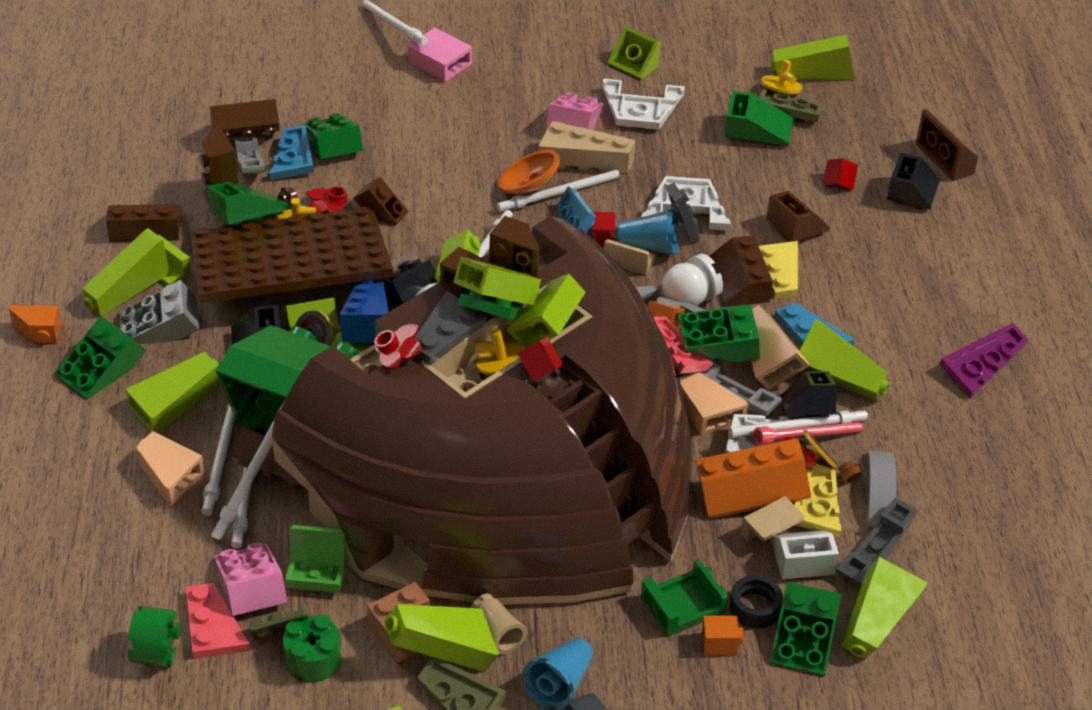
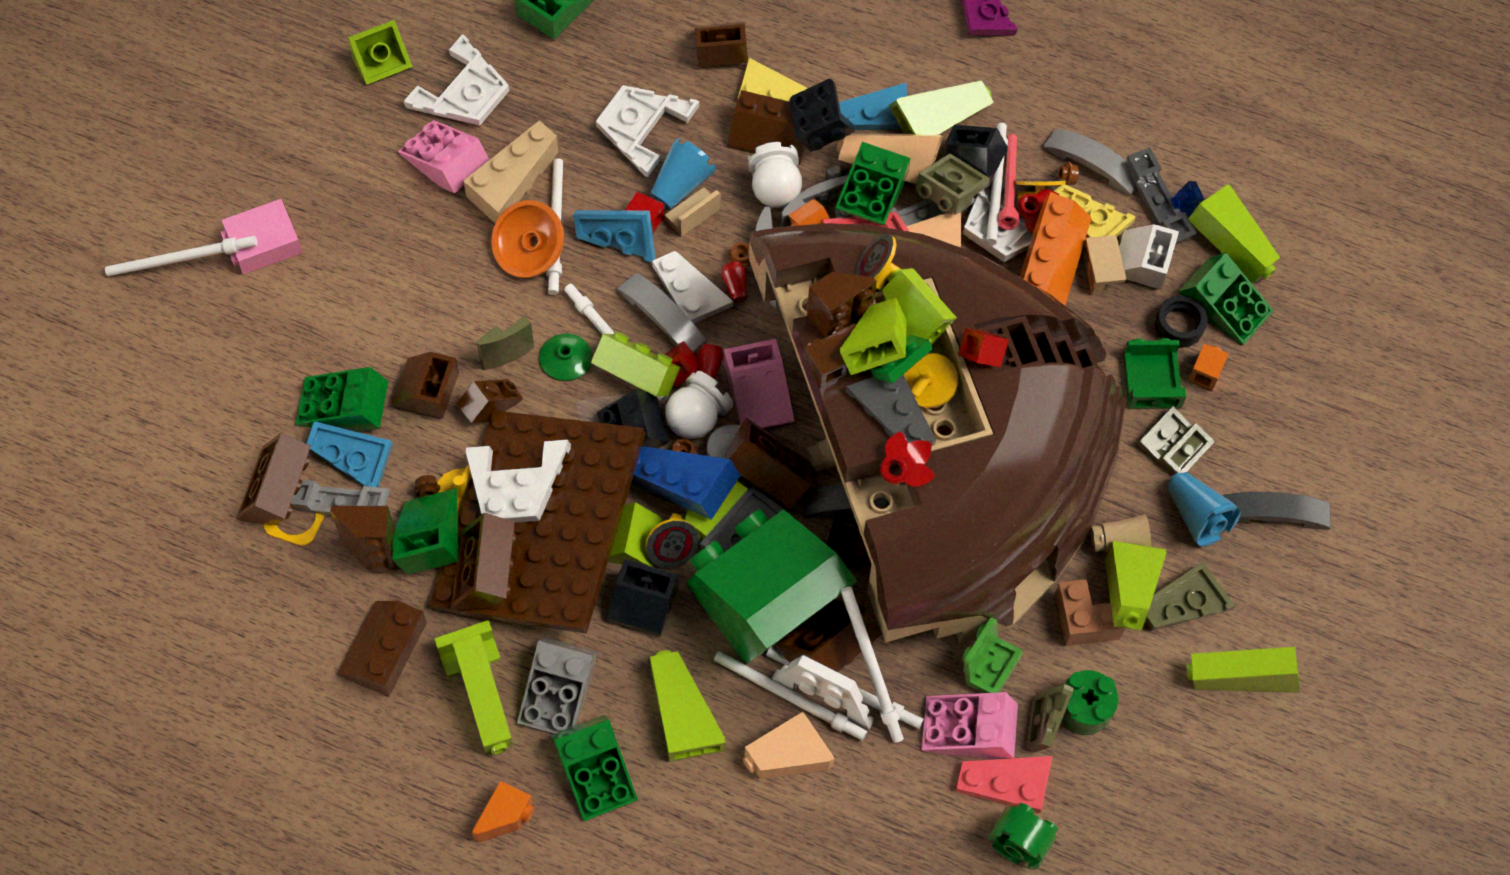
camera: 65 degrees left, 20 degrees up
(222, 447) = (827, 683): none -> white wing
(229, 228) = (483, 563): none -> reddish brown slope
(303, 228) = (516, 493): none -> white wing
(328, 199) = (451, 453): red plate -> none
(369, 166) = (427, 384): none -> reddish brown slope
(429, 189) = (501, 347): none -> olive slope
(443, 230) = (568, 366): none -> green dish
(575, 265) = (877, 259): none -> shield
(625, 638) = (1175, 442): none -> slope
(684, 212) = (681, 127): dark grey wing -> none
(749, 280) = (818, 116): none -> black bracket
(765, 382) = (951, 184): none -> olive plate
(890, 556) = (1188, 198): none -> clear blue tile

